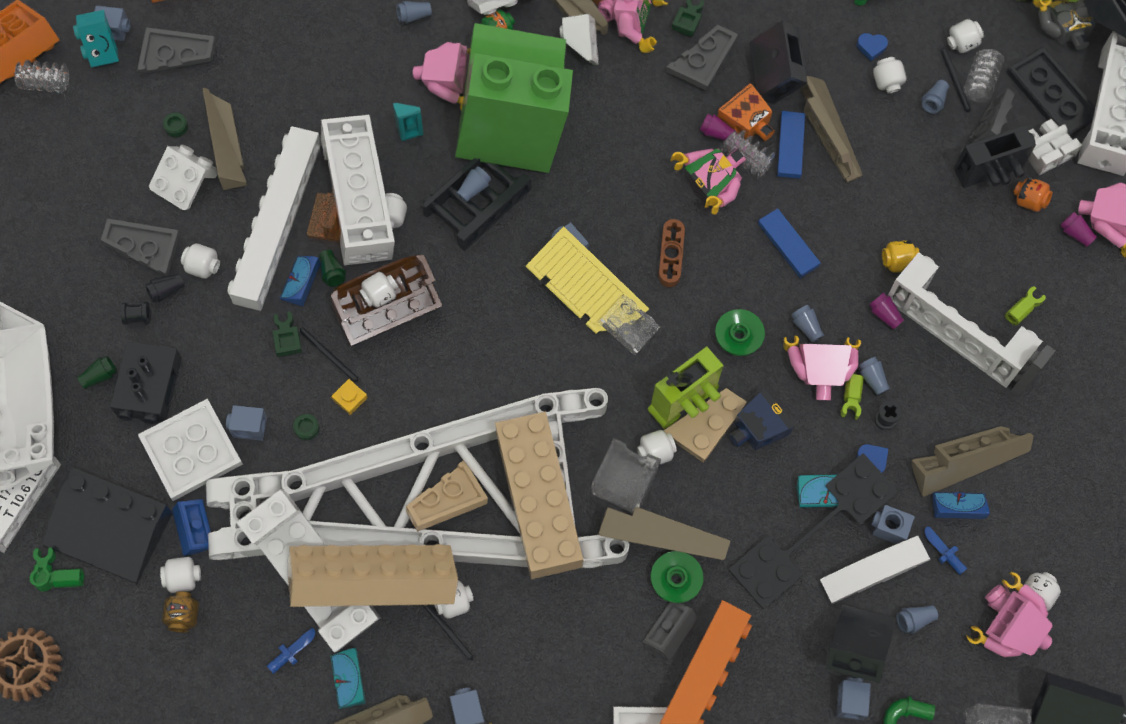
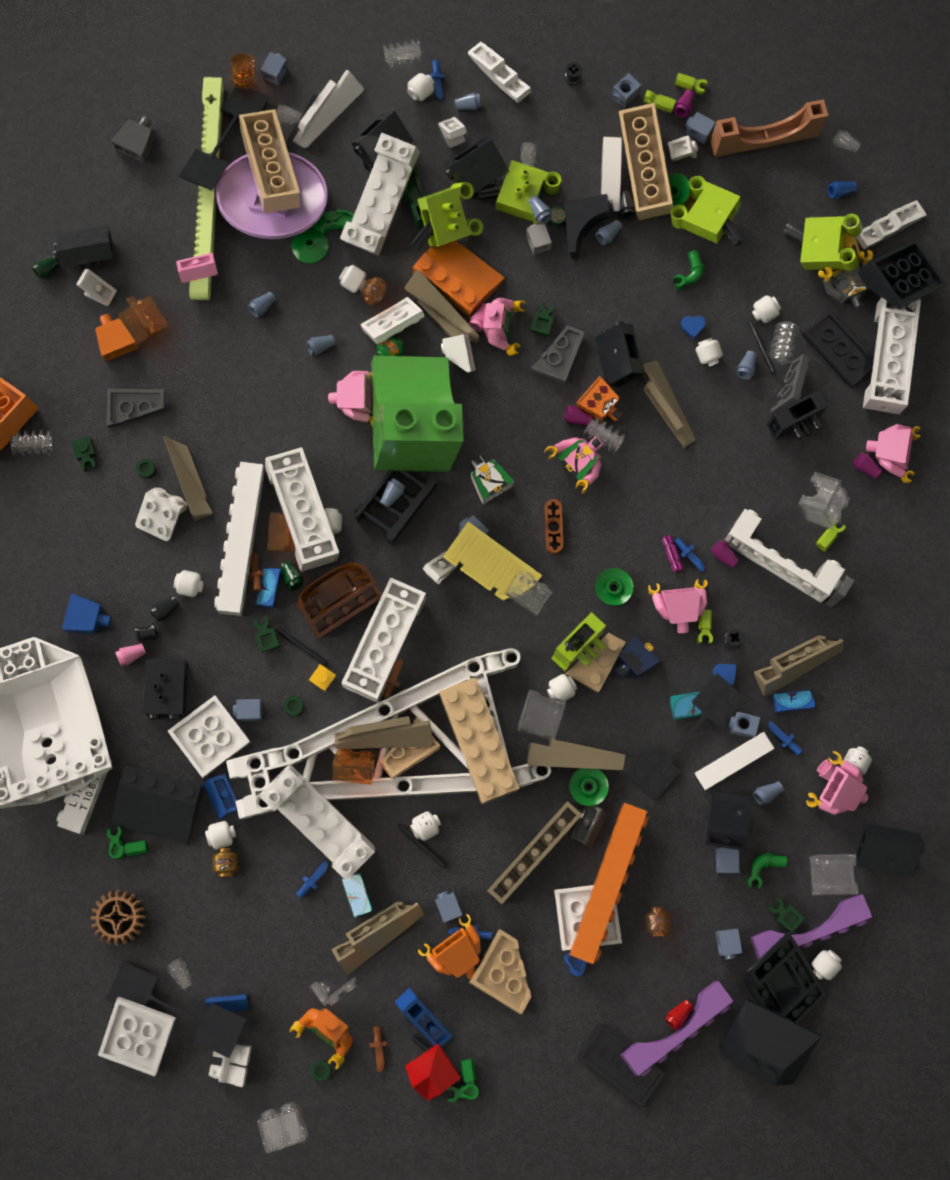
camera: 10 degrees left, 10 degrees up
(62, 283) = (84, 616): none -> blue torso
(97, 38) = (70, 406): teal brick -> none
(99, 371) = (127, 684): dark green cone -> none
(103, 96) = (84, 451): none -> dark green plate
(109, 336) = (130, 654): none -> bright pink cone
(117, 20) = (77, 387): sand blue brick -> none
(142, 243) = (140, 574): dark grey wing -> none
(287, 261) = (256, 574): none -> dark orange piece
(368, 507) = (353, 766): none -> clear orange bracket
(371, 575) = (365, 821): tan brick -> none
(378, 290) = (332, 591): white head -> none
(408, 121) = (332, 445): teal slope -> none
(418, 471) = (385, 734): none -> dark tan wedge
(433, 356) = (383, 640): none -> white plate
(438, 412) = (391, 683): none -> dark orange piece
(519, 283) = (439, 568): none -> white slope
(592, 653) = (534, 853): none -> dark tan brick
(598, 187) = (489, 479): none -> torso
(789, 243) = (644, 506): blue tile -> none
(791, 144) = (636, 421): blue tile -> none
(807, 322) = (665, 571): sand blue cone -> none
(819, 303) = (672, 553): none -> magenta axle
(839, 303) = (687, 551): none -> blue piece
(874, 375) = (720, 607): sand blue cone -> none
(898, 255) = (731, 506): yellow head -> none
(1025, 263) = (827, 505): none -> clear piece
(1033, 194) = (830, 441): orange head -> none
(1053, 147) = (842, 399): white hips -> none

